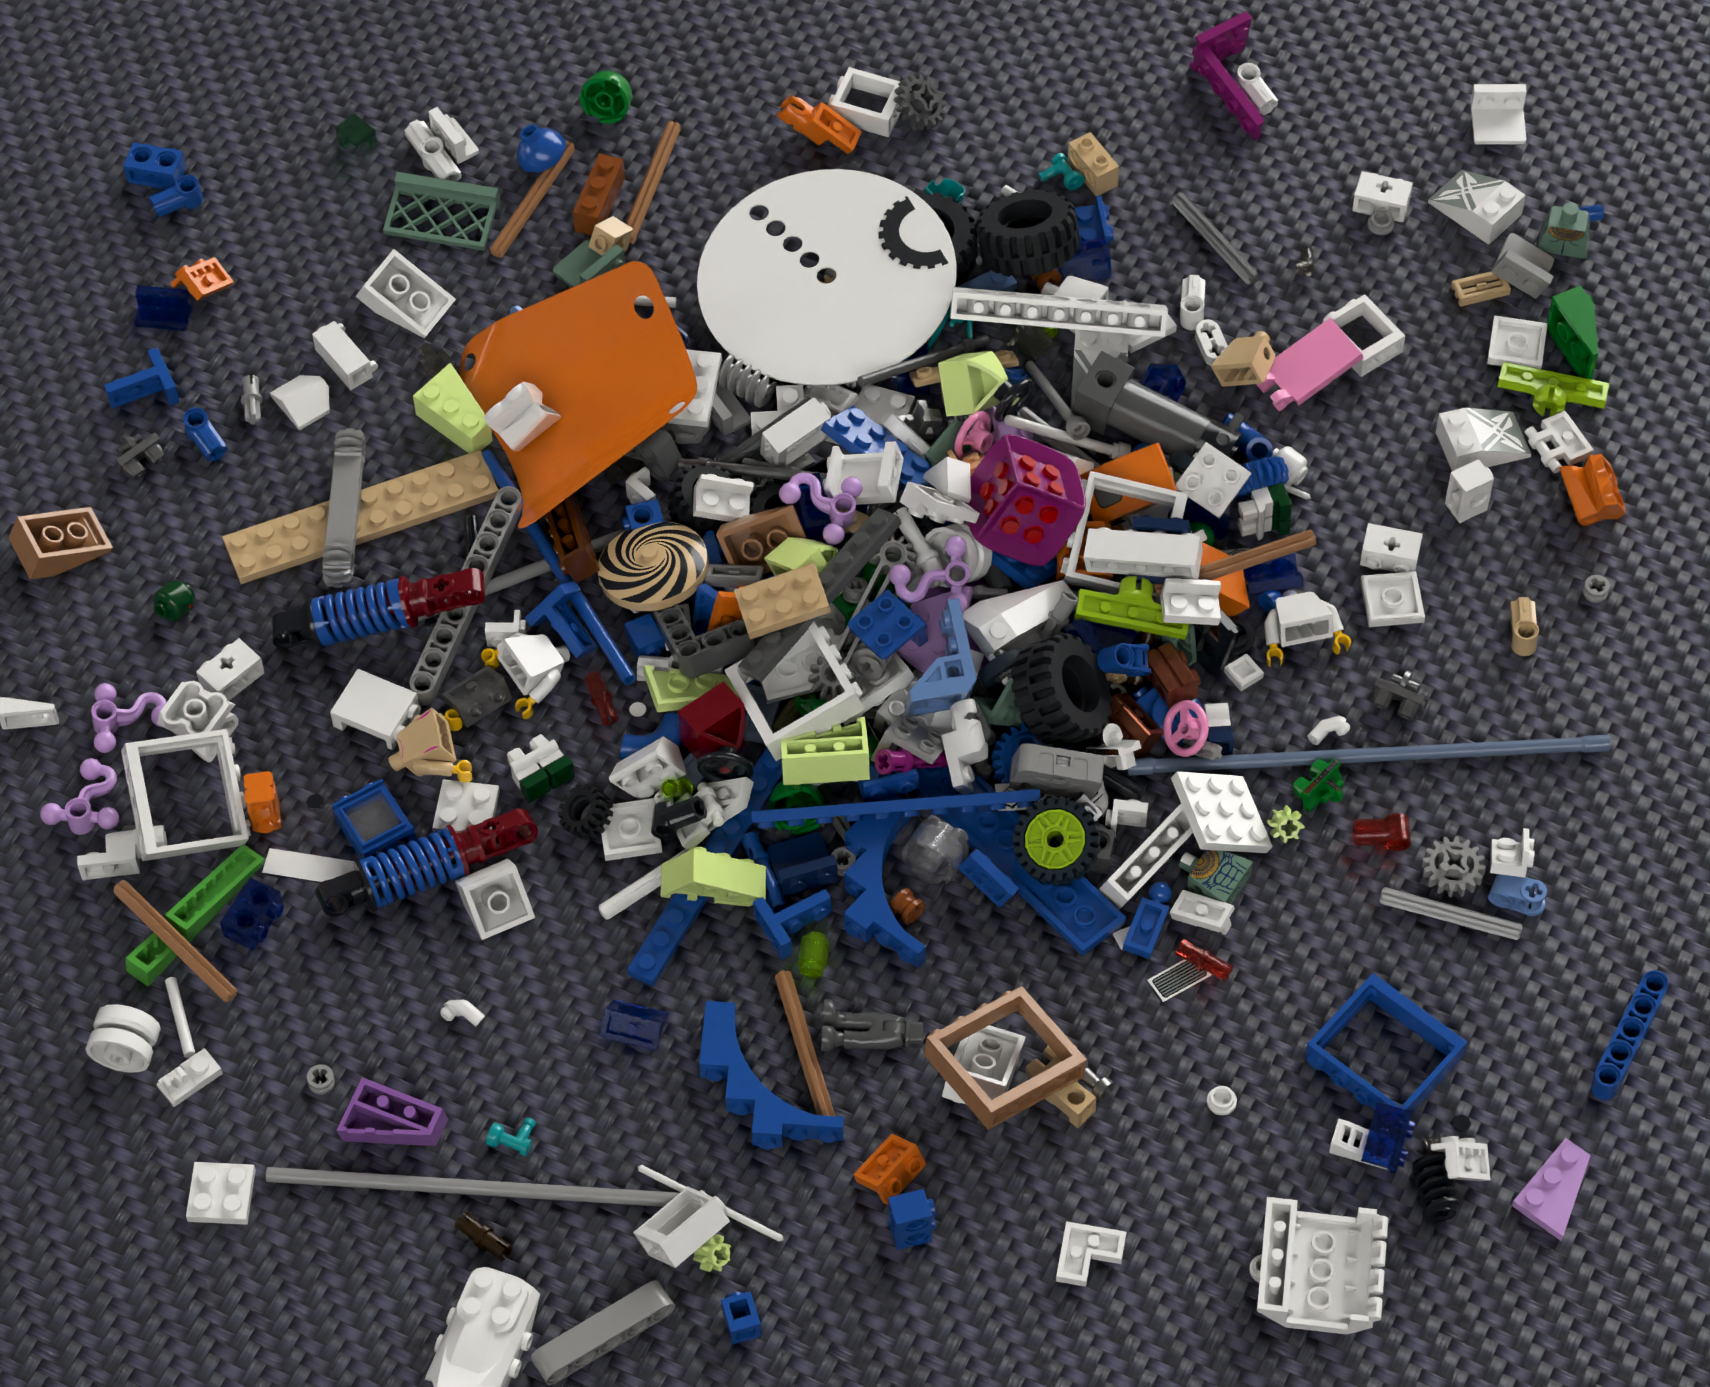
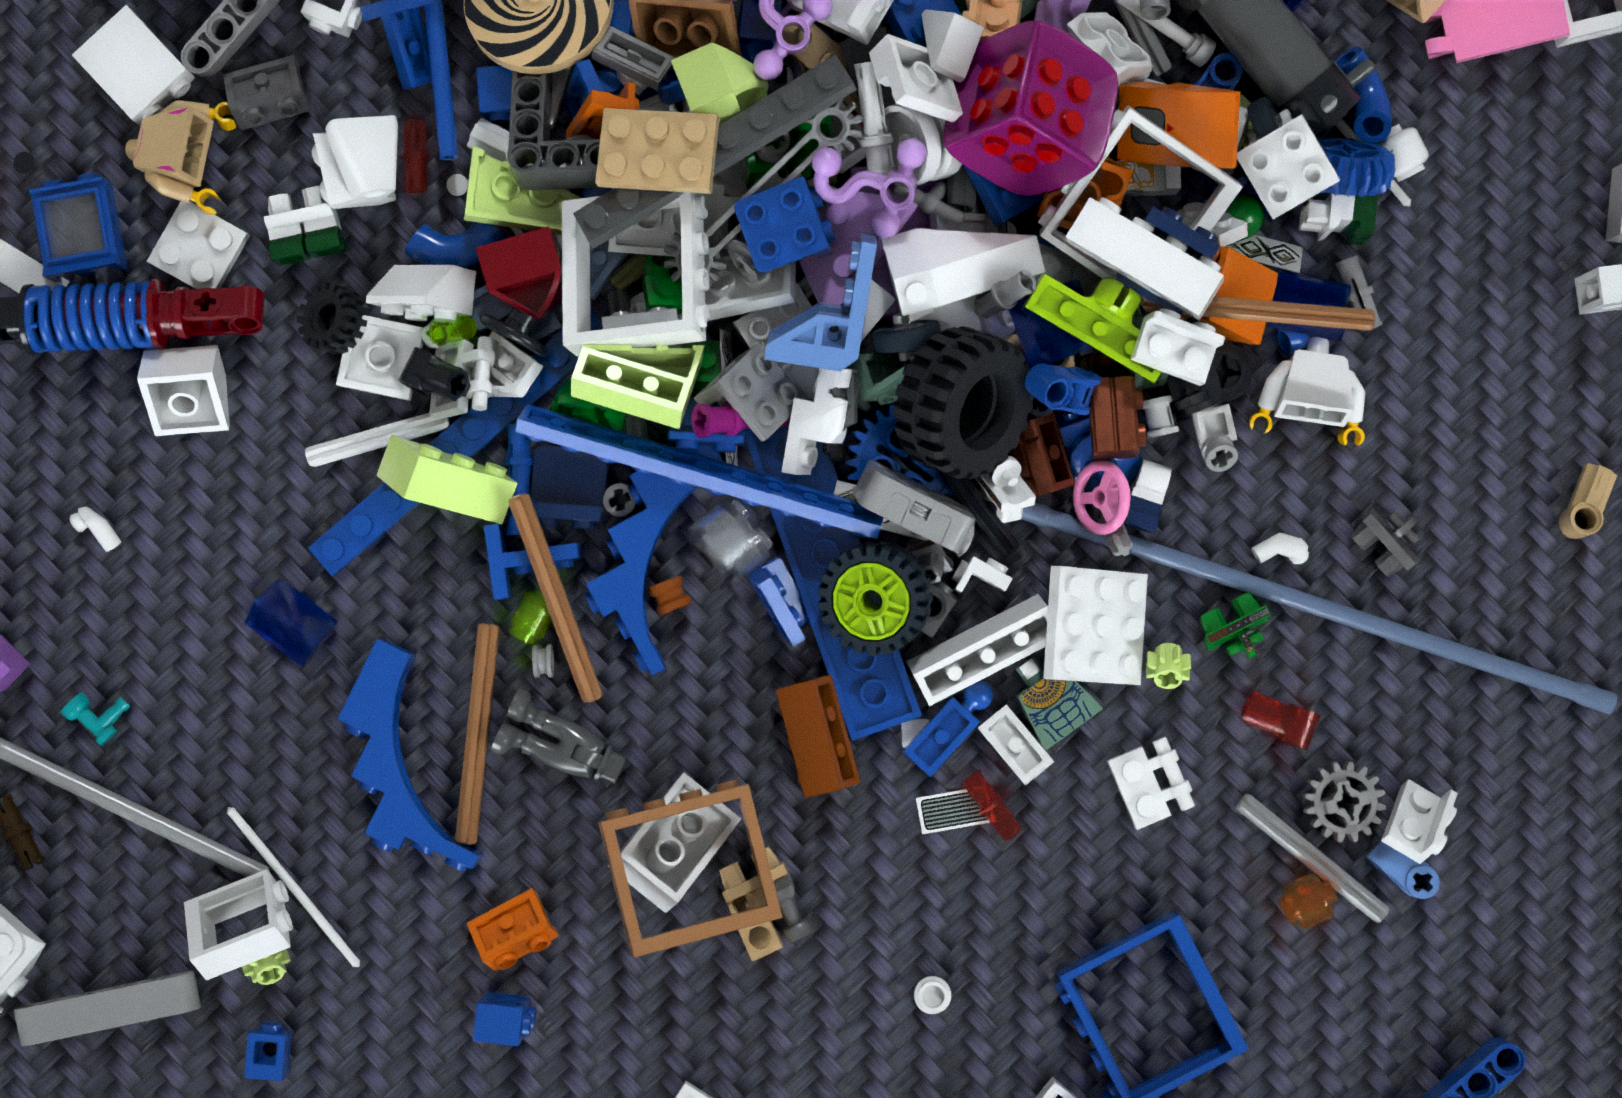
camera: 20 degrees right, 30 degrees up
(531, 664) = (343, 74): white torso -> none
(565, 705) = (357, 161): none -> white piece
(826, 929) = (555, 597): none -> medium nougat axle
(833, 981) = (543, 661): none -> light grey bush
(1056, 955) = (817, 736): none -> dark orange brick
(1208, 681) = (1159, 417): none -> white bush
(1262, 683) = (1214, 444): none -> light grey bush
(1305, 913) = (1139, 785): none -> white plate
(1310, 564) = (1351, 269): none -> light grey pin
(1390, 549) = (1493, 329): white brick -> none
(1392, 599) = (1443, 397): white plate -> none
(1461, 937) = (1308, 901): none -> clear orange head

